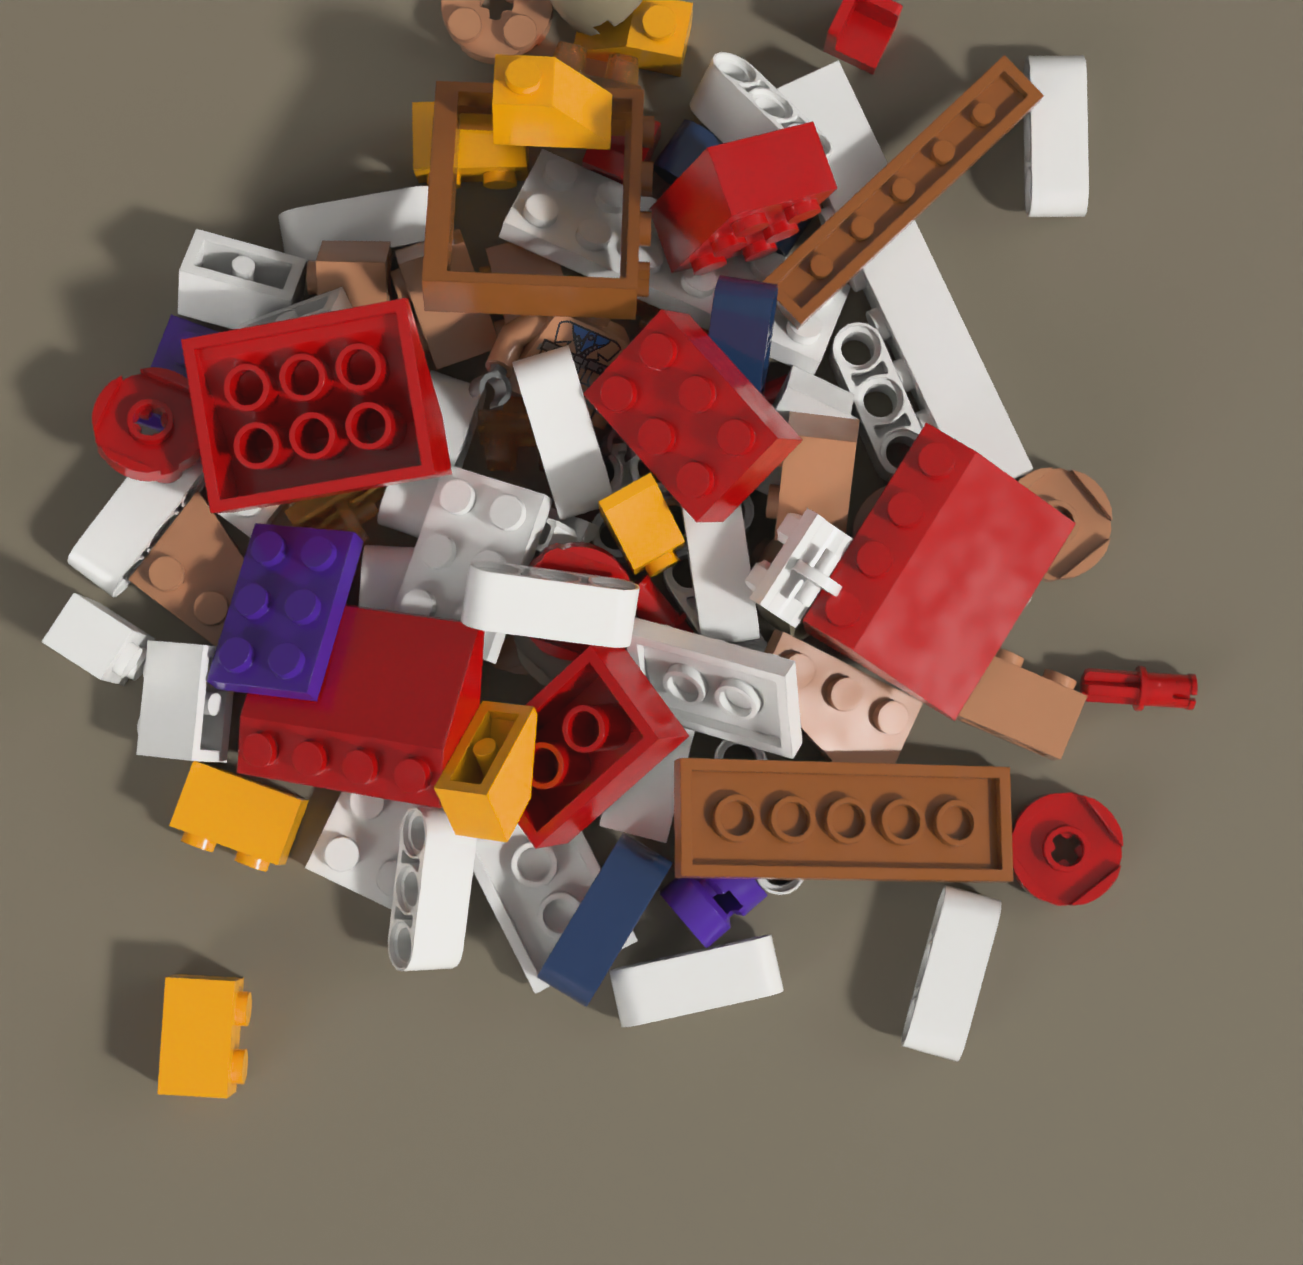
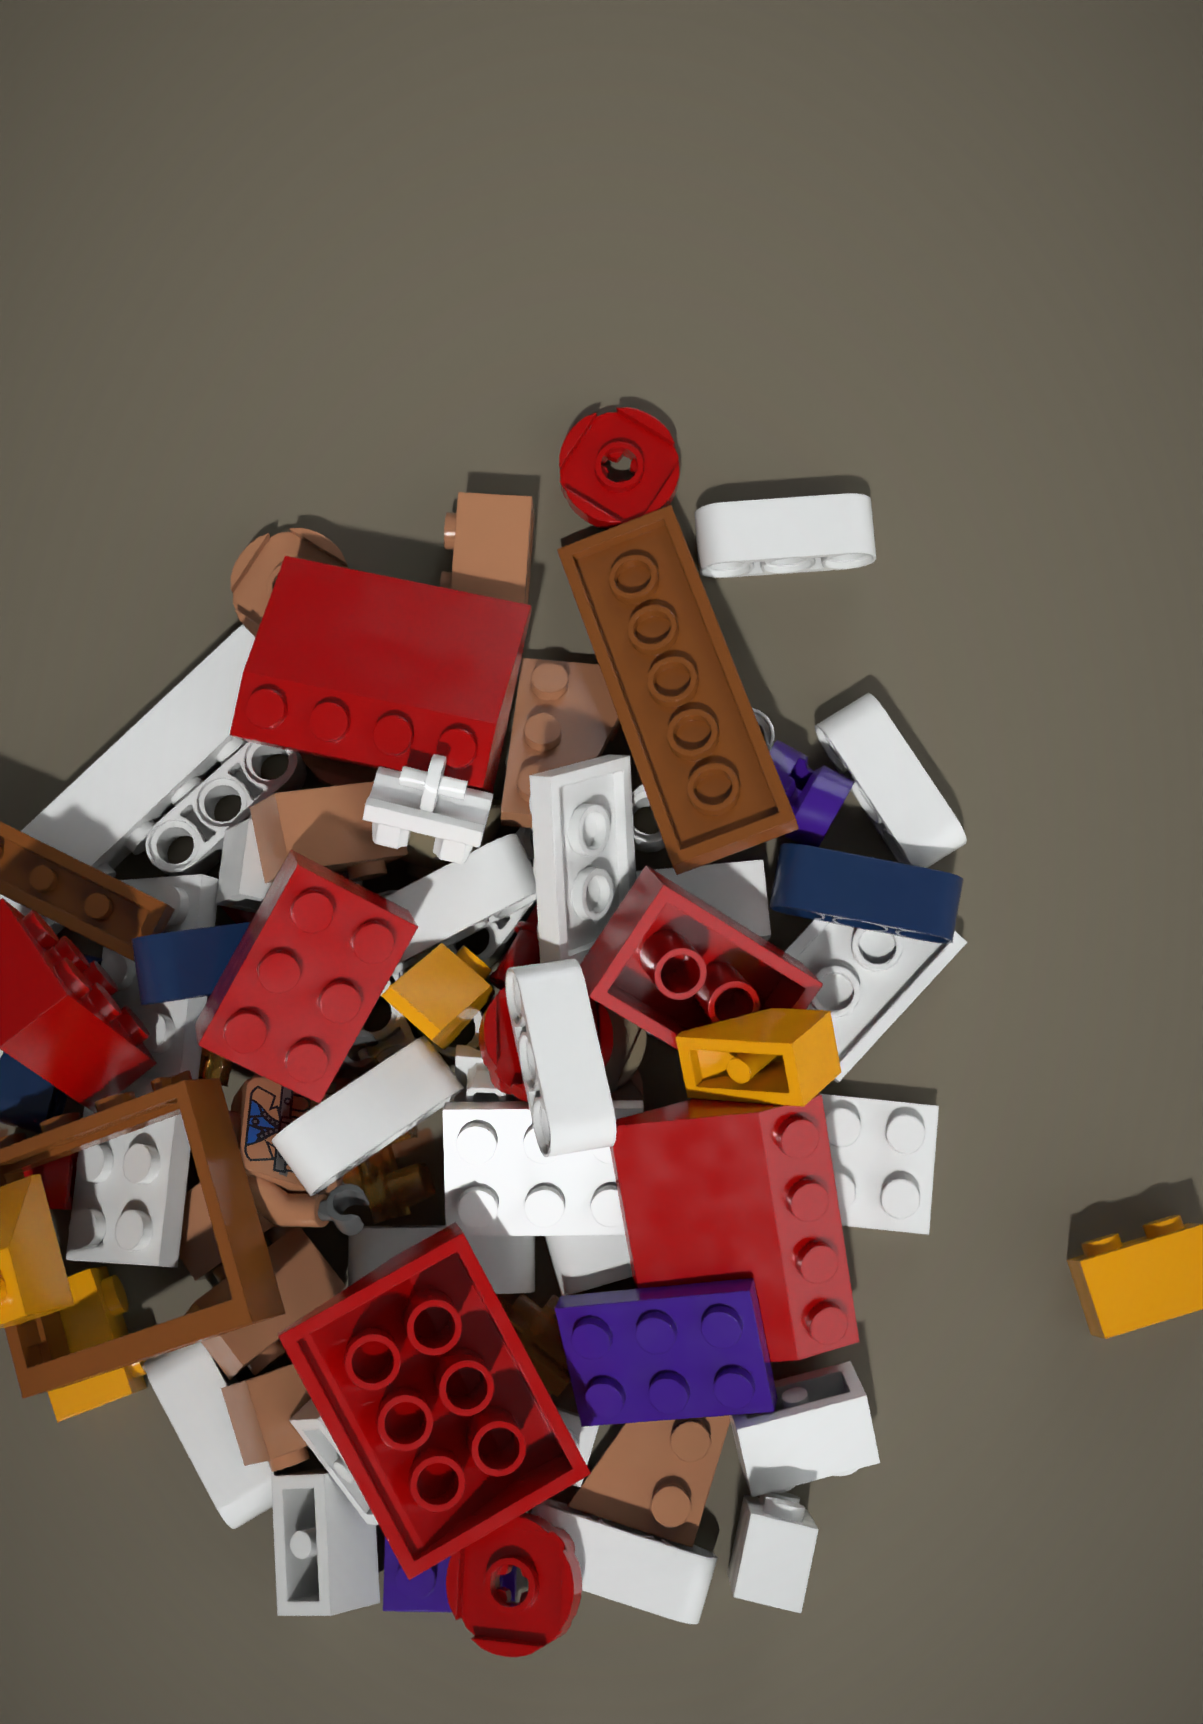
camera: 105 degrees left, 5 degrees down
(238, 815) = (902, 1327): light orange brick -> none
(430, 892) = (908, 1087): white beam -> none
(1139, 688) = (431, 451): red axle -> none

